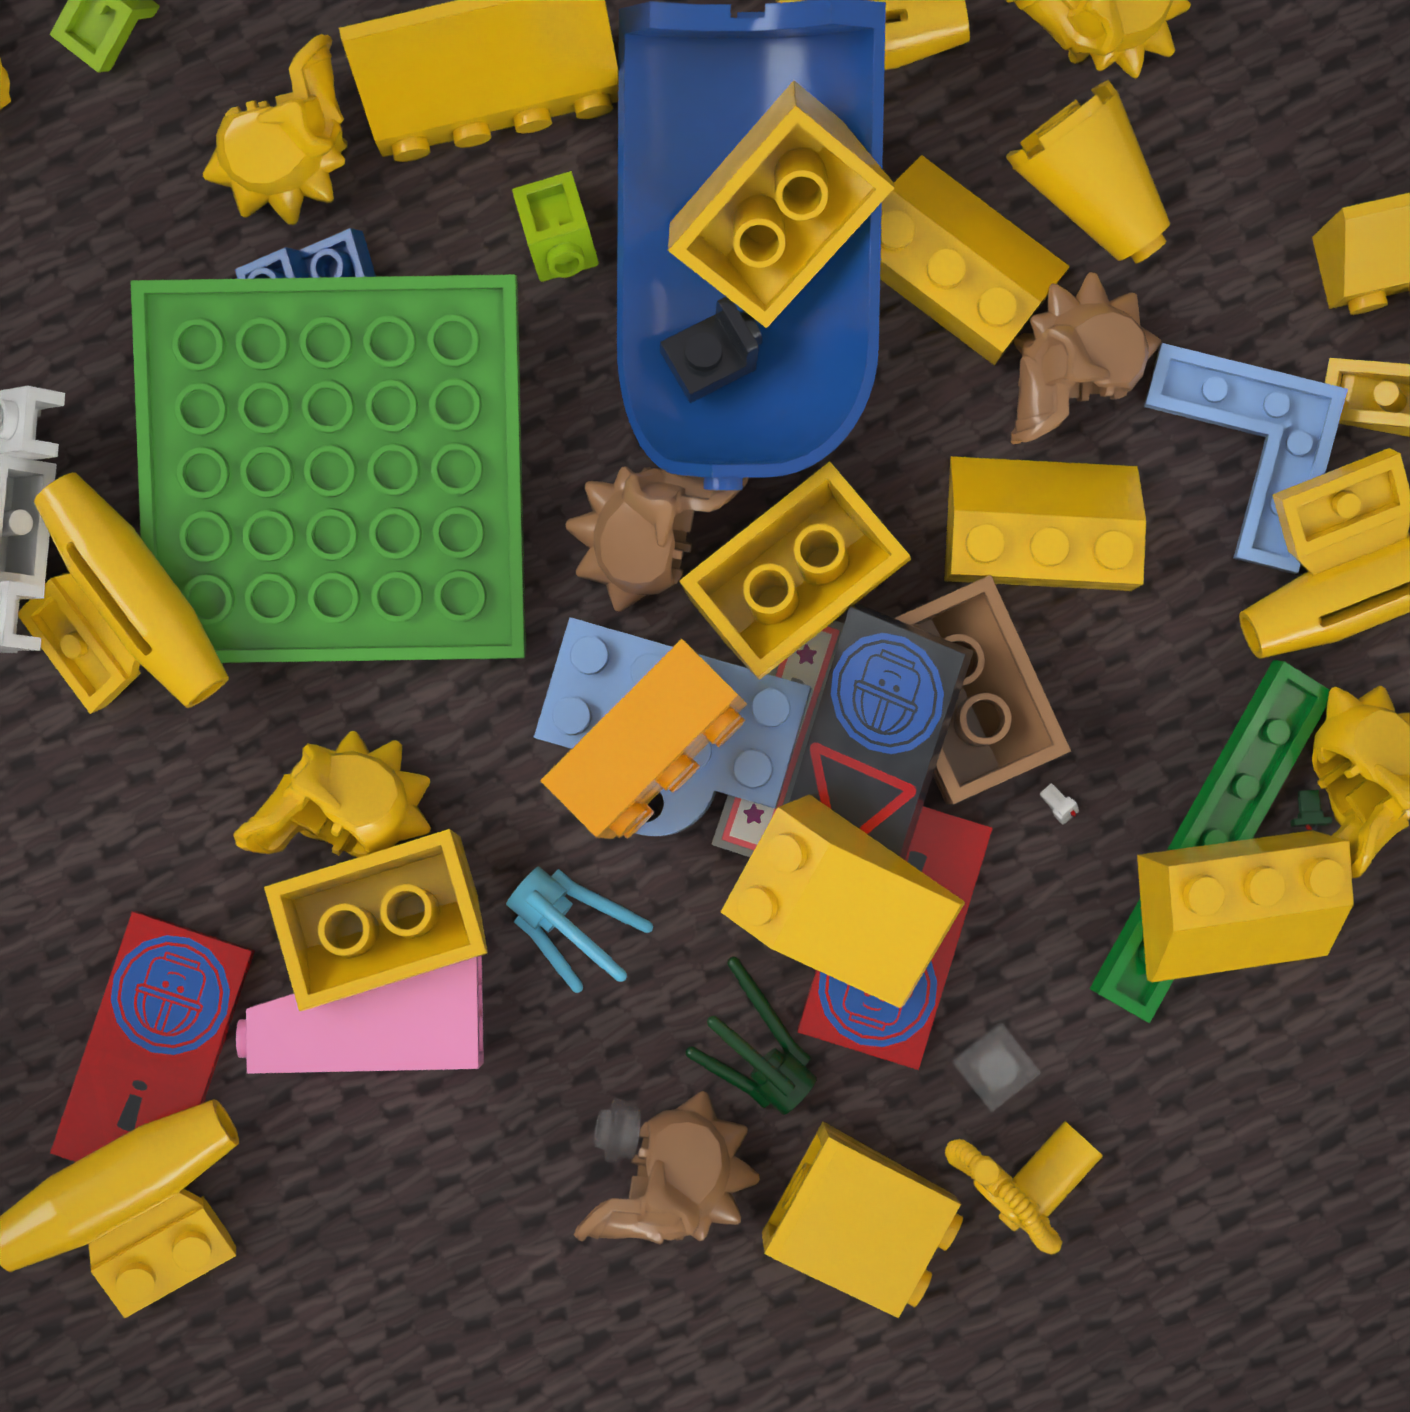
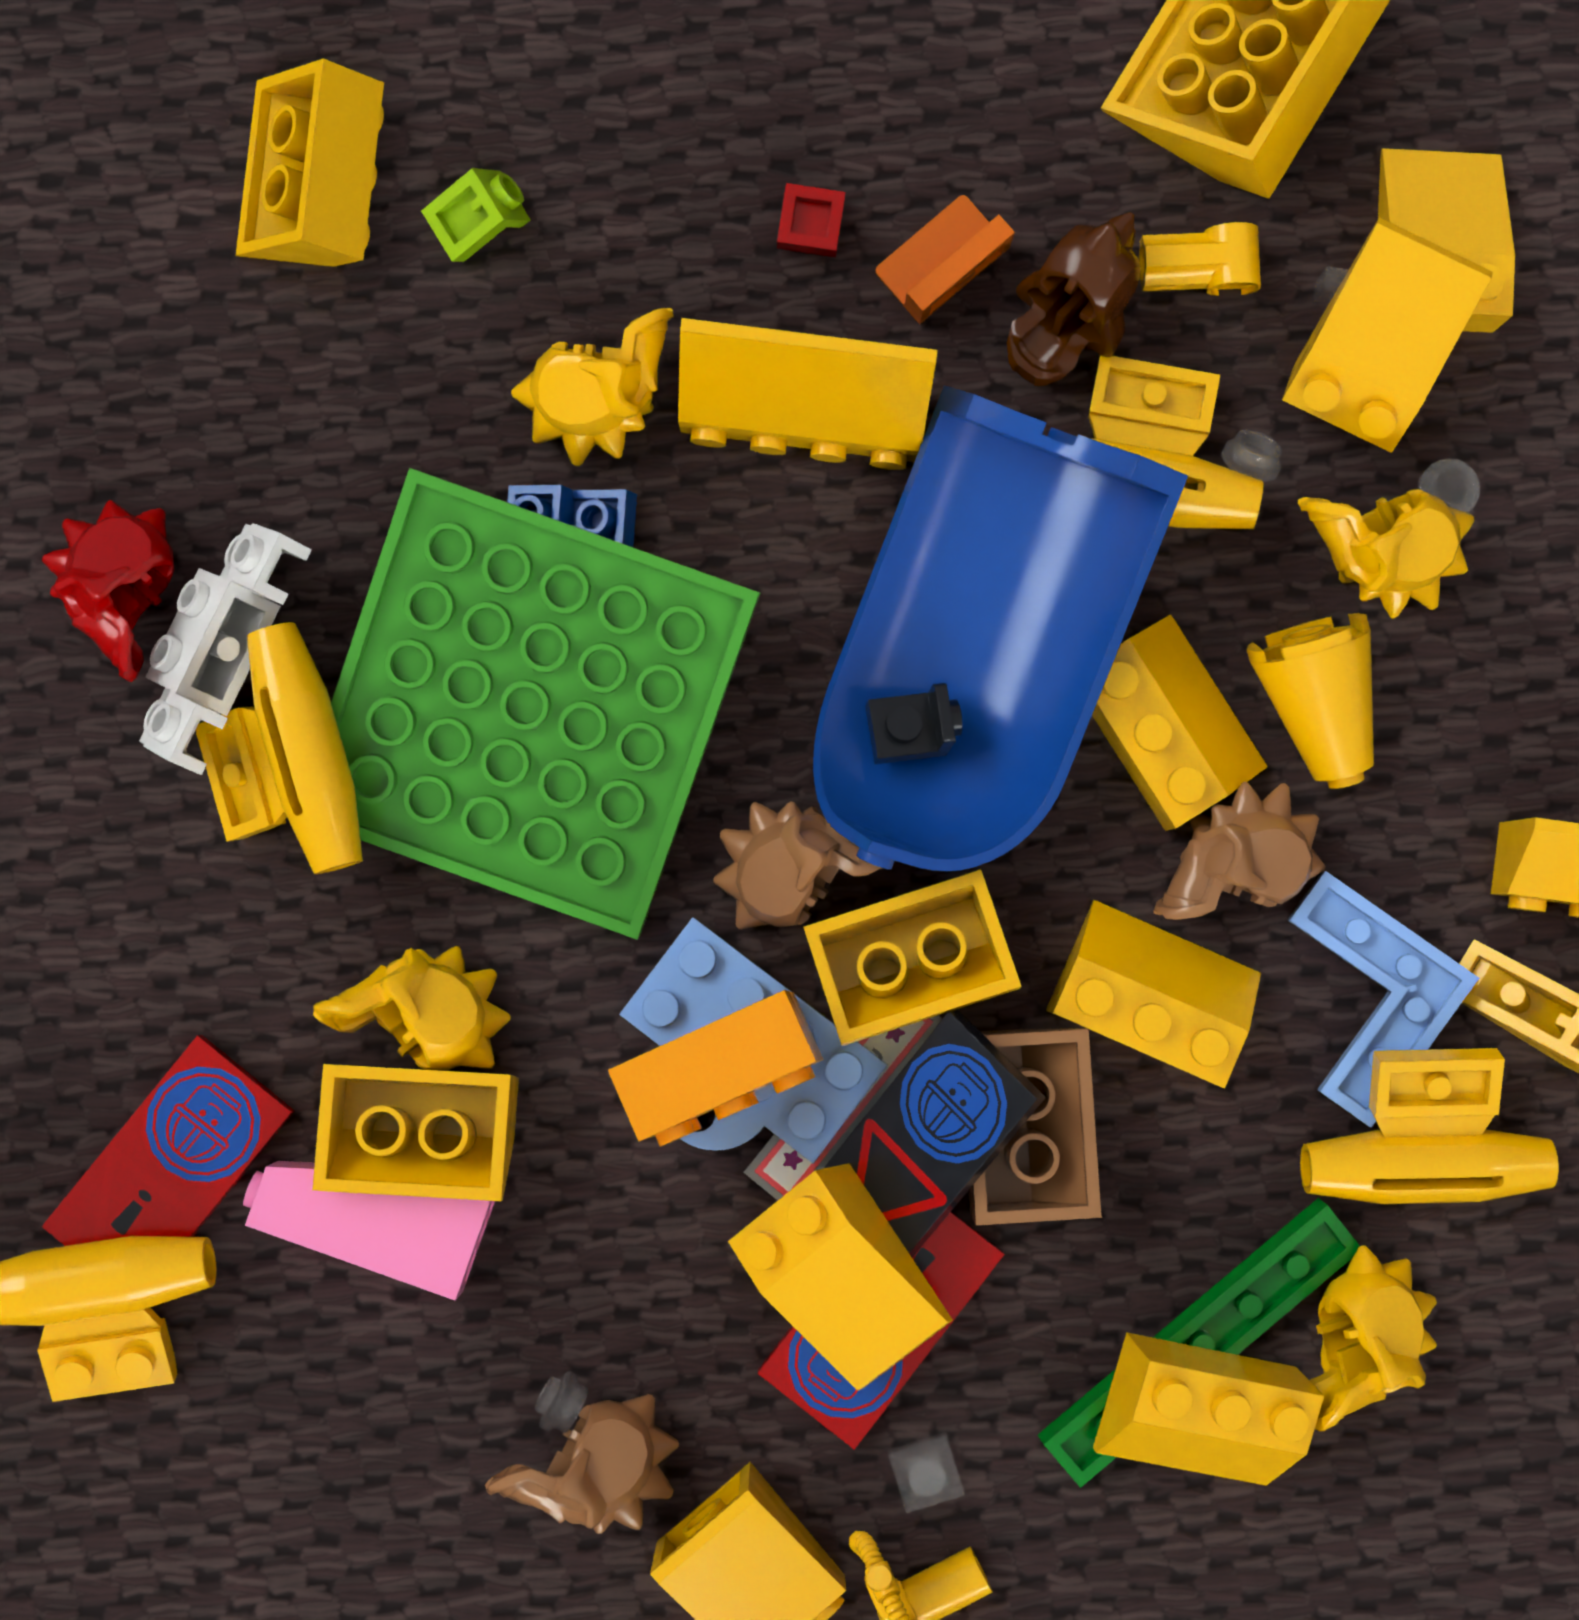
camera: 20 degrees right, 0 degrees up
(543, 903) = (569, 1170): medium azure plant -> none
(555, 227) = (813, 556): lime bracket -> none
(779, 205) = (1021, 620): yellow slope -> none
(779, 1077) = (721, 1406): dark green plant -> none
(1062, 807) = (1075, 1260): white piece -> none
(1310, 811) = (1300, 1347): dark green piece -> none

